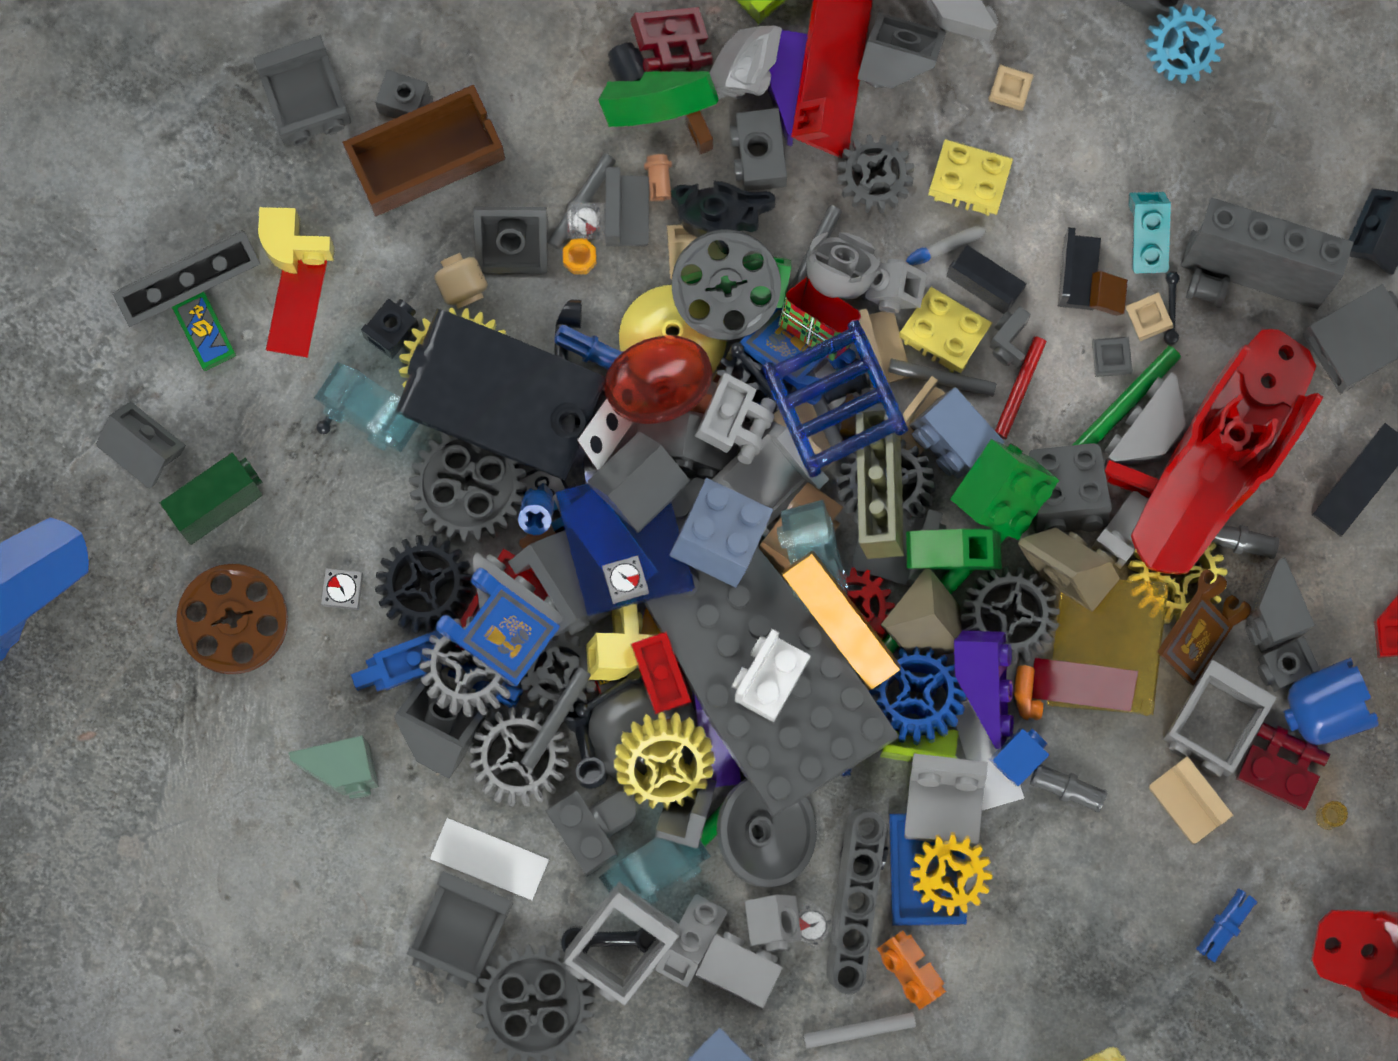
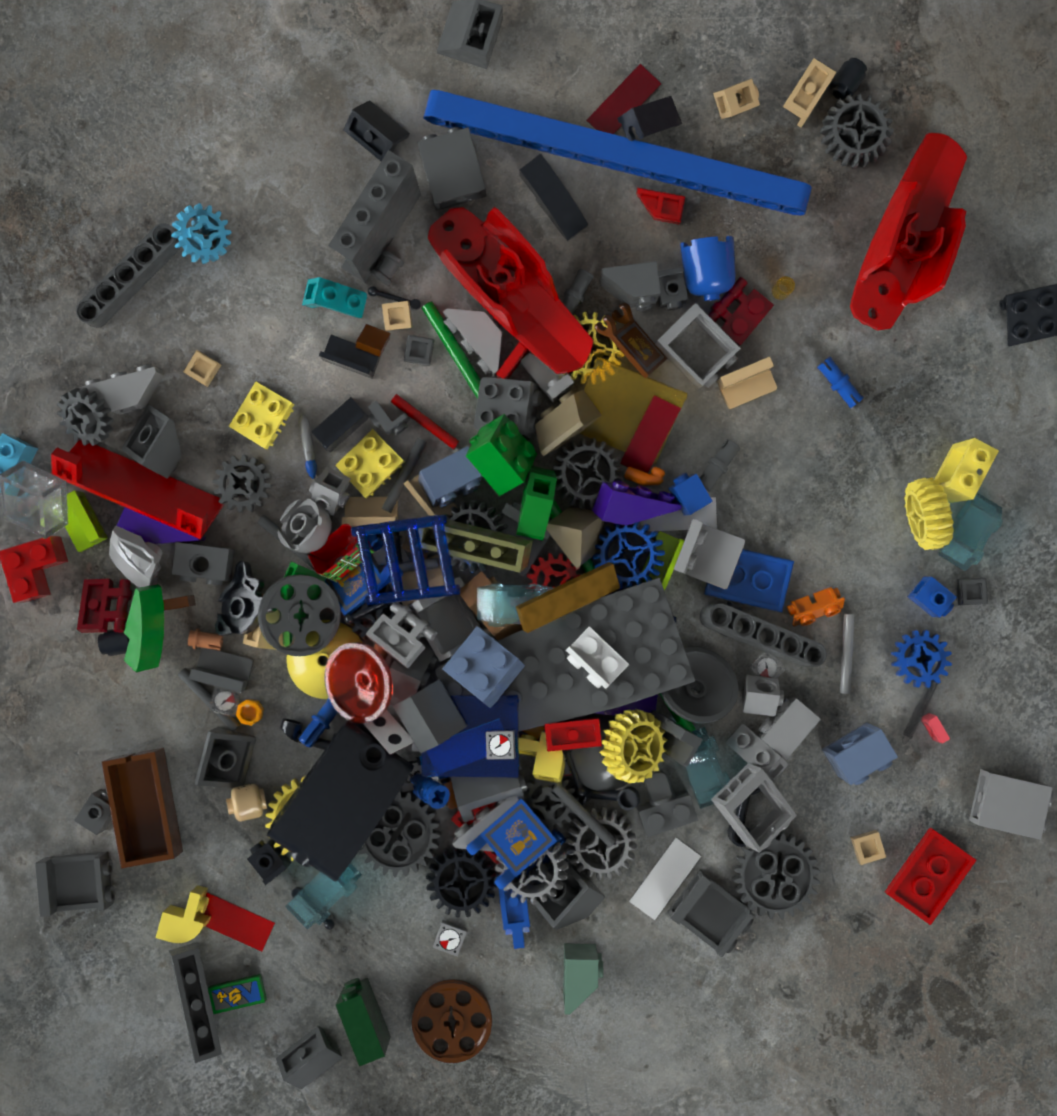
camera: 75 degrees left, 10 degrees up
(935, 878) = (755, 554): yellow gear -> none

